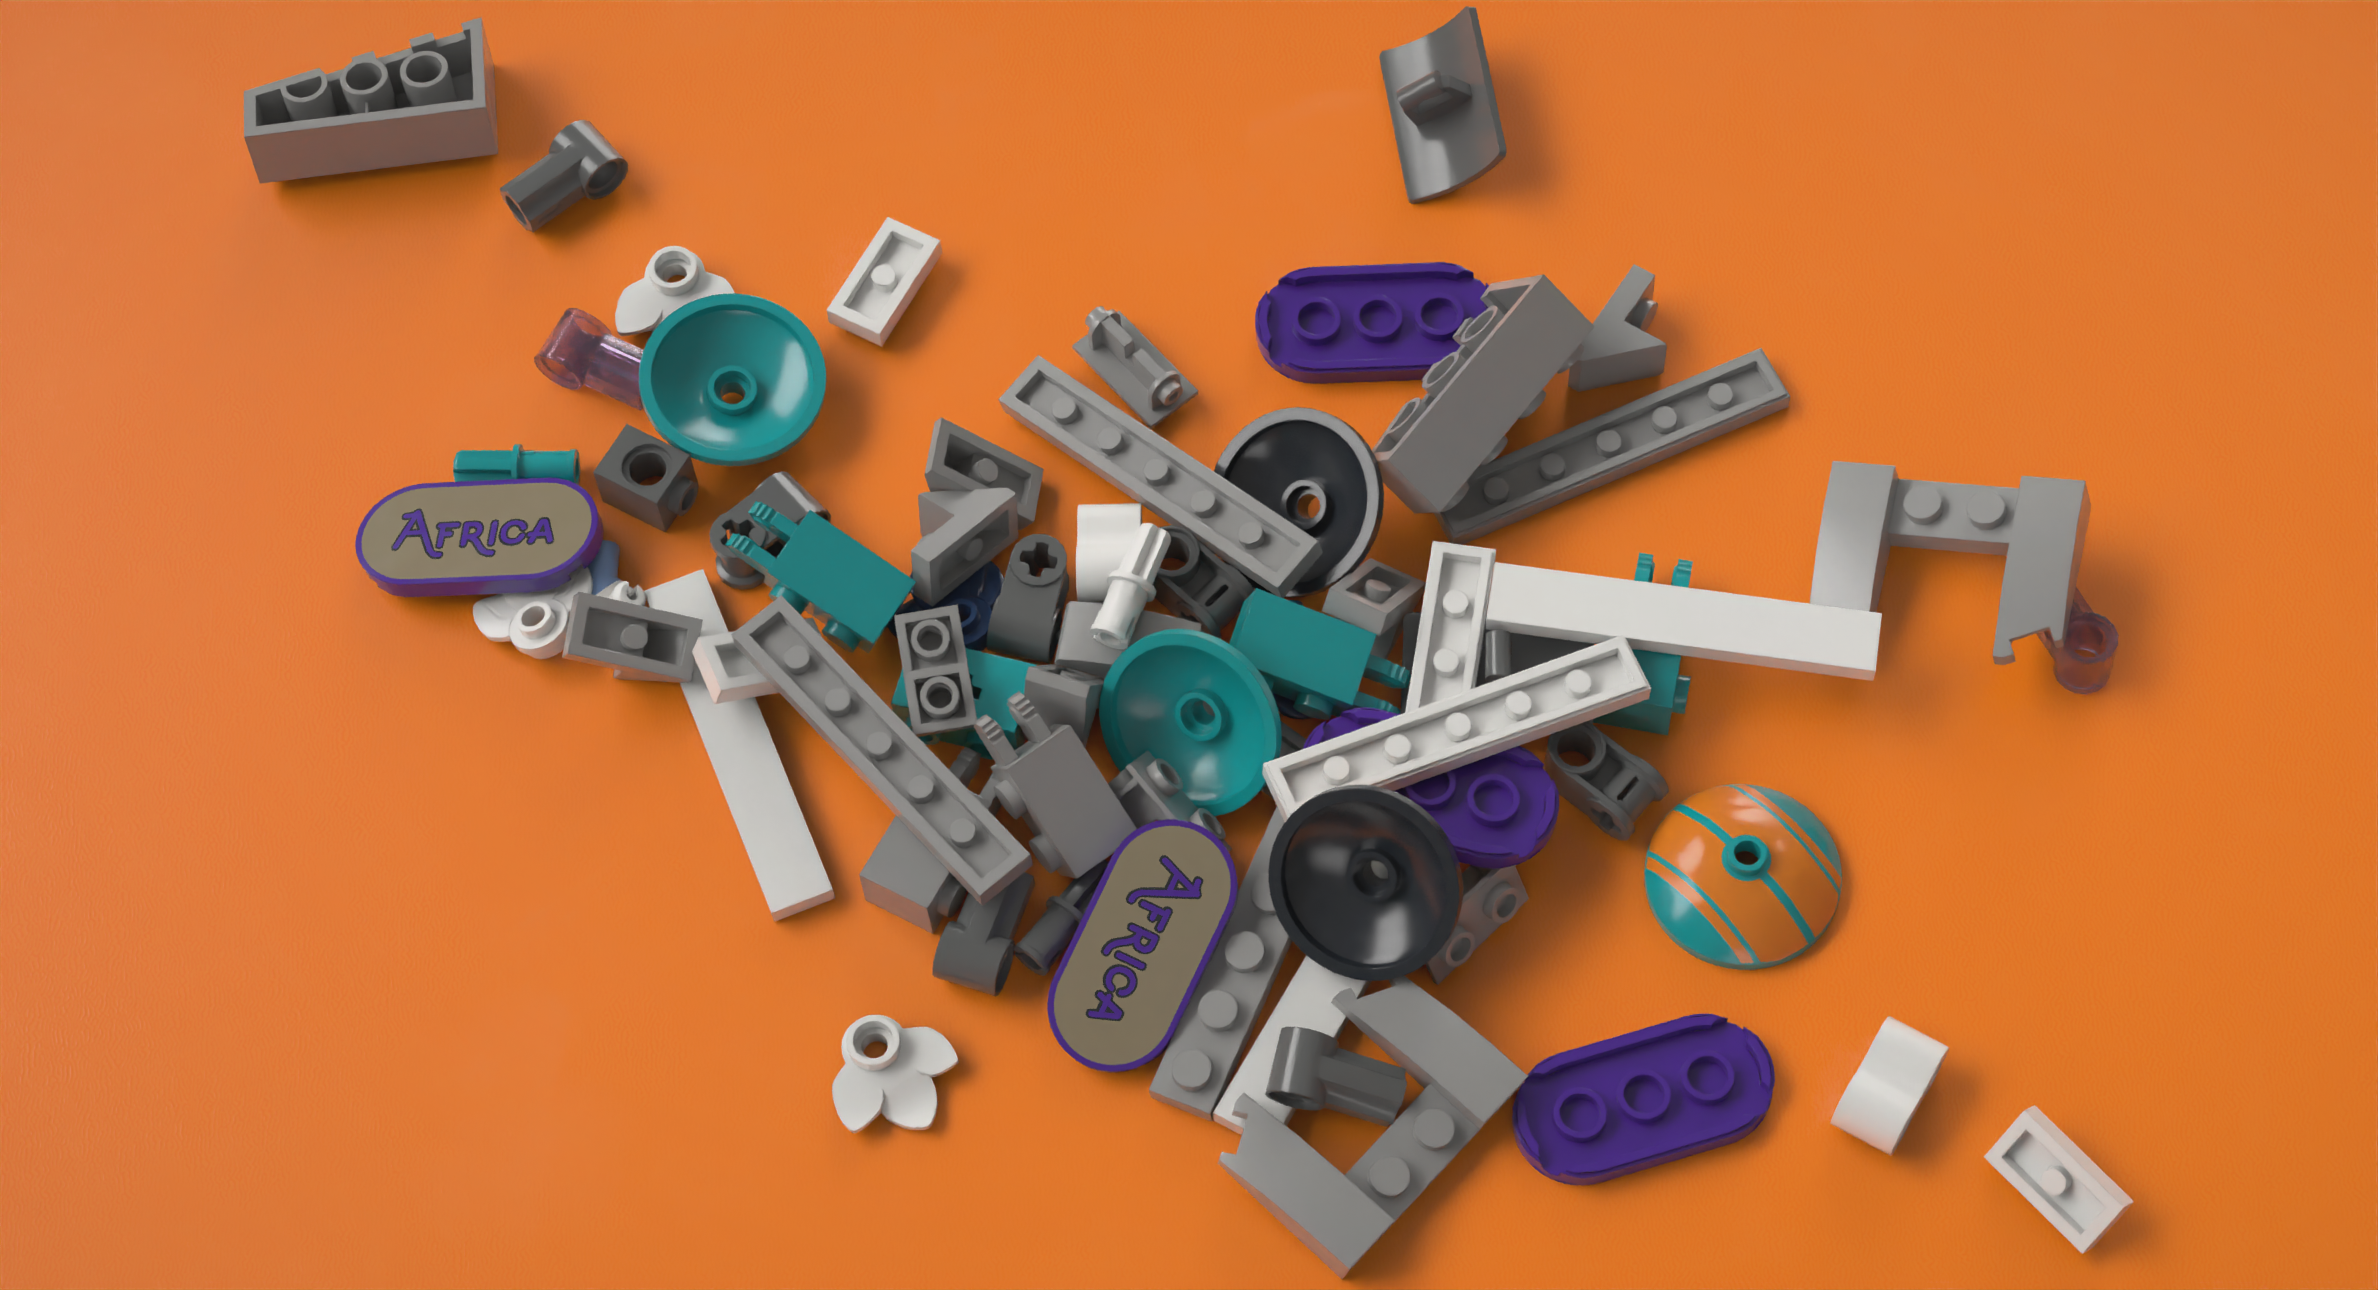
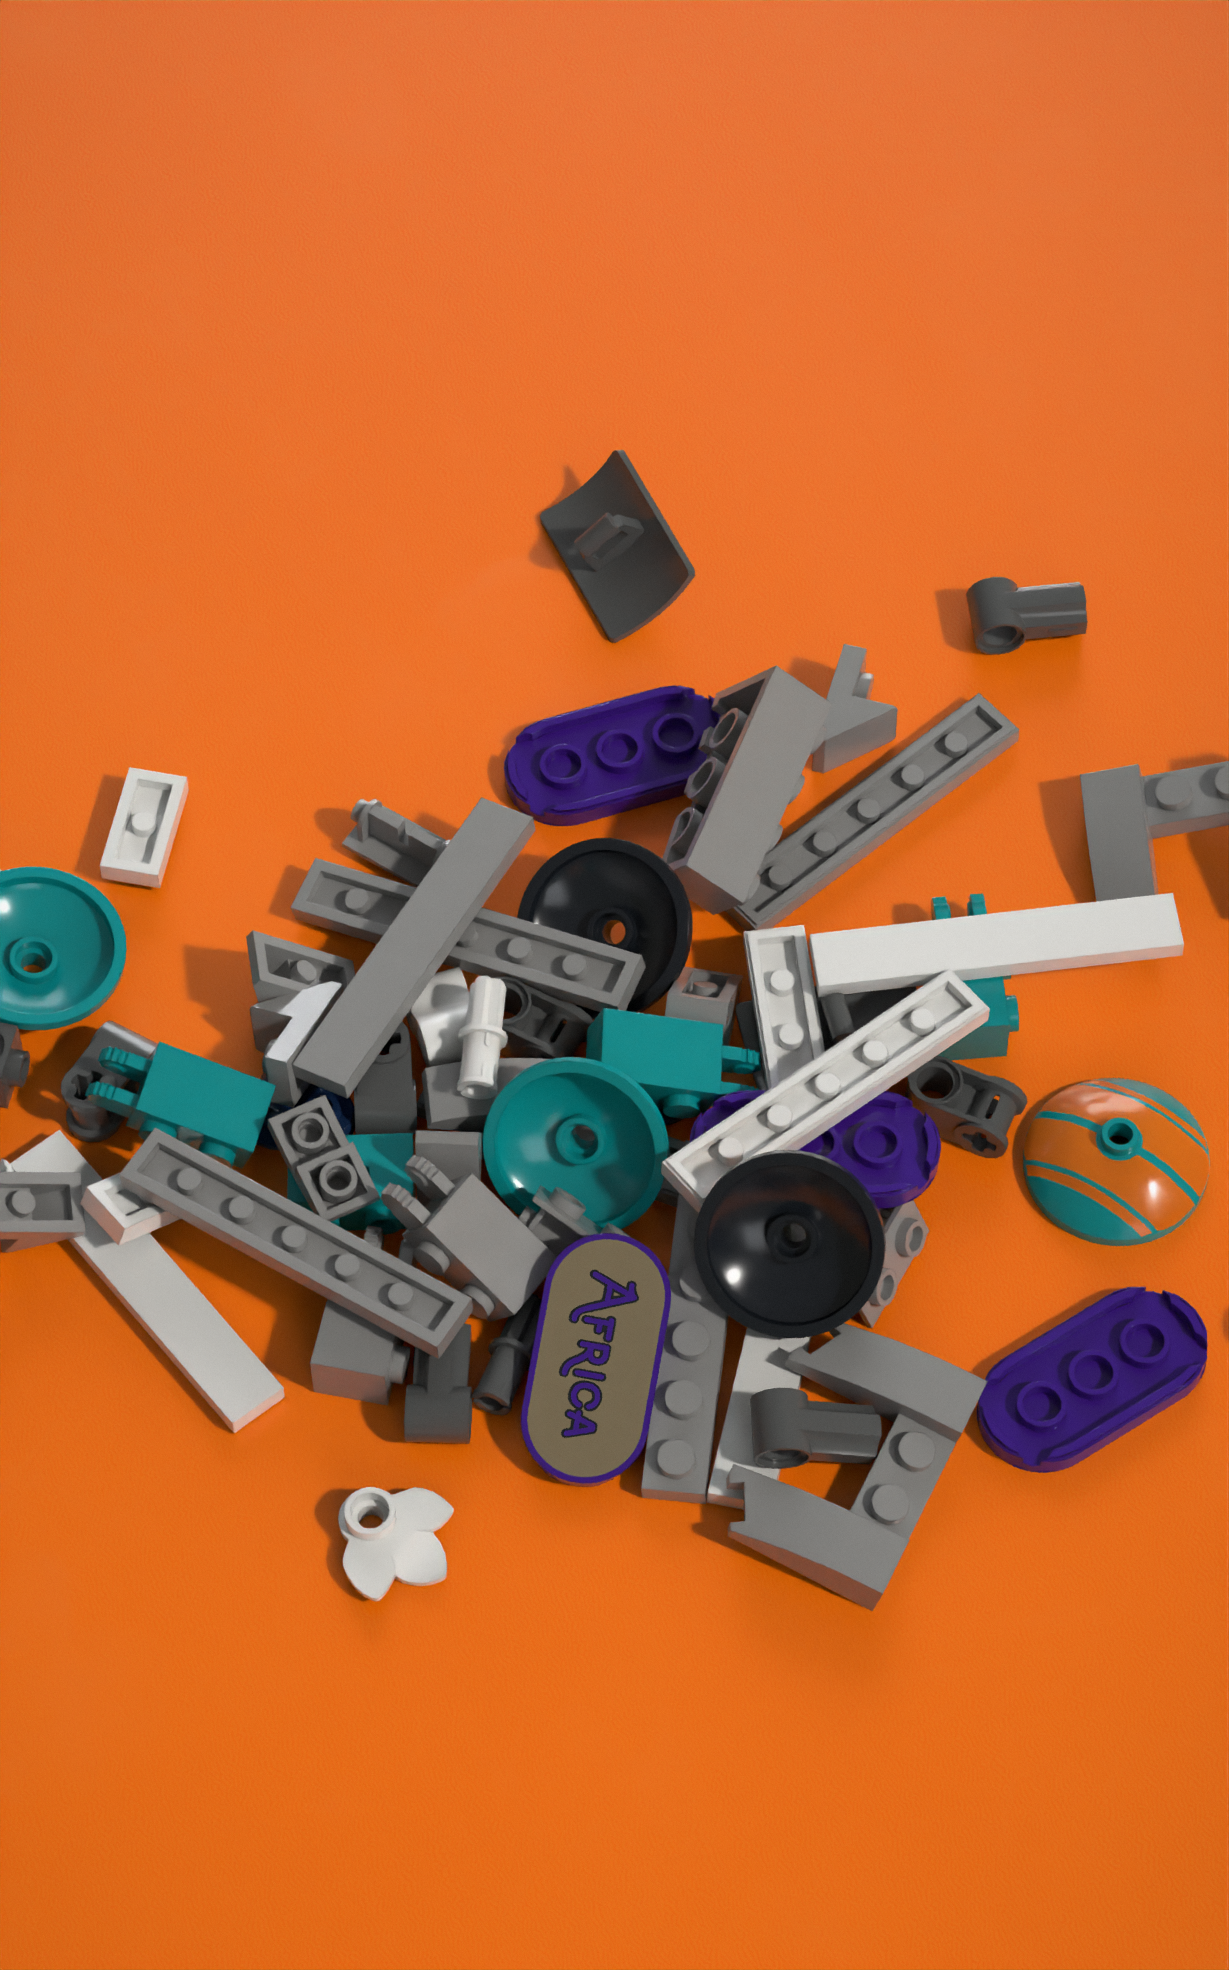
camera: 20 degrees left, 5 degrees down
(1097, 474) = (413, 948): none -> light grey tile
(1819, 273) = (1009, 615): none -> dark grey piece

